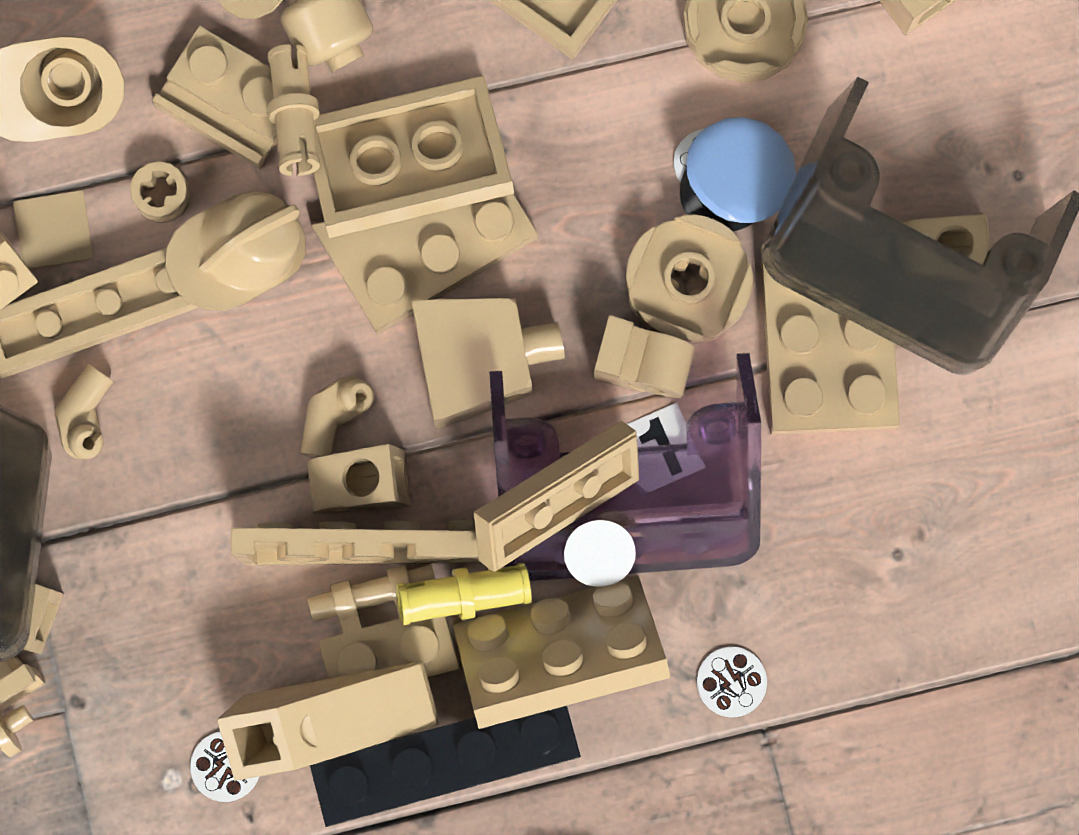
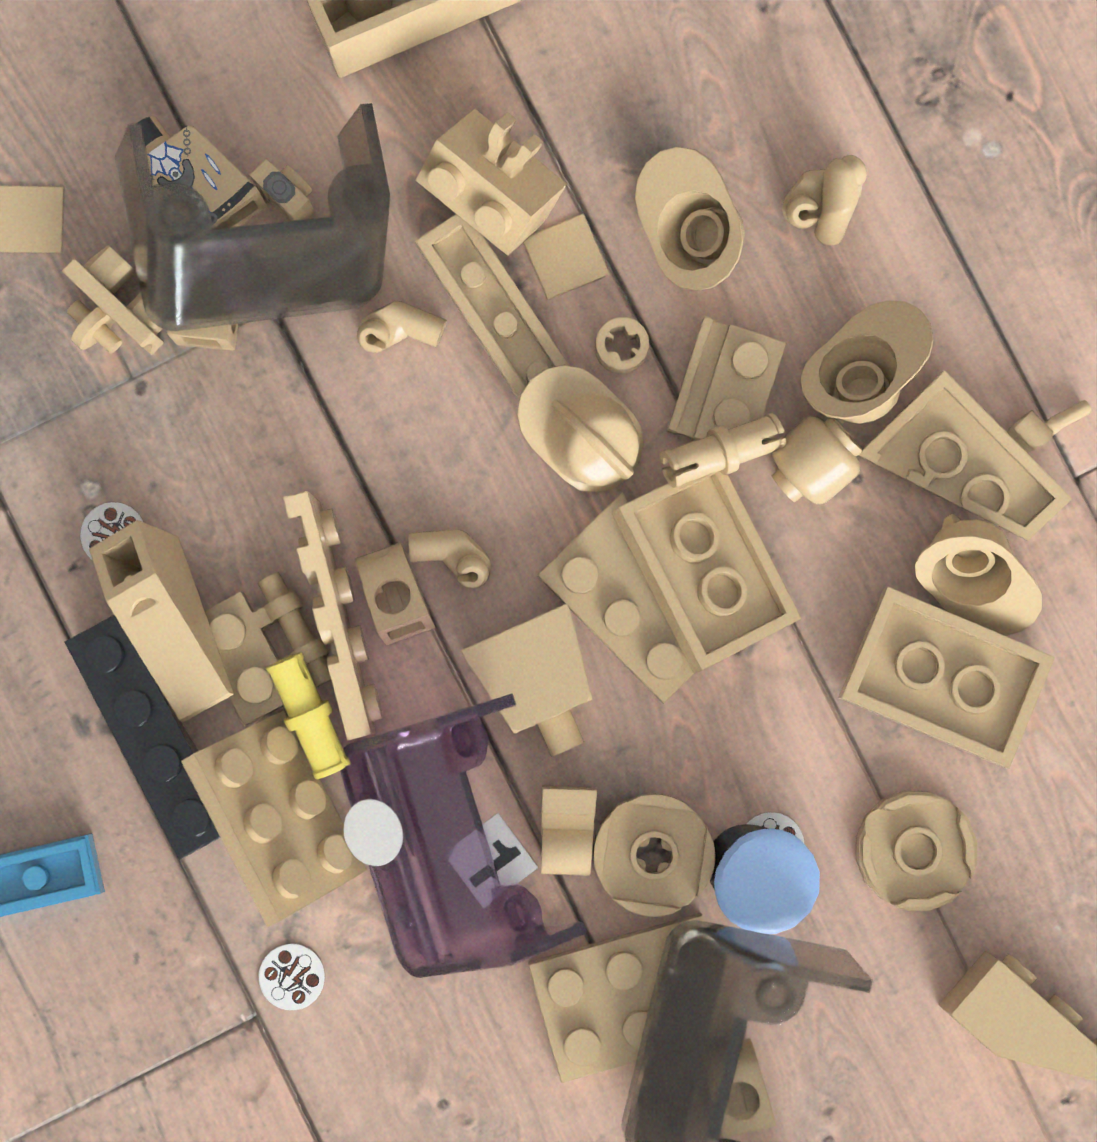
camera: 70 degrees right, 5 degrees up
(556, 496) = (413, 782): tan tile -> none

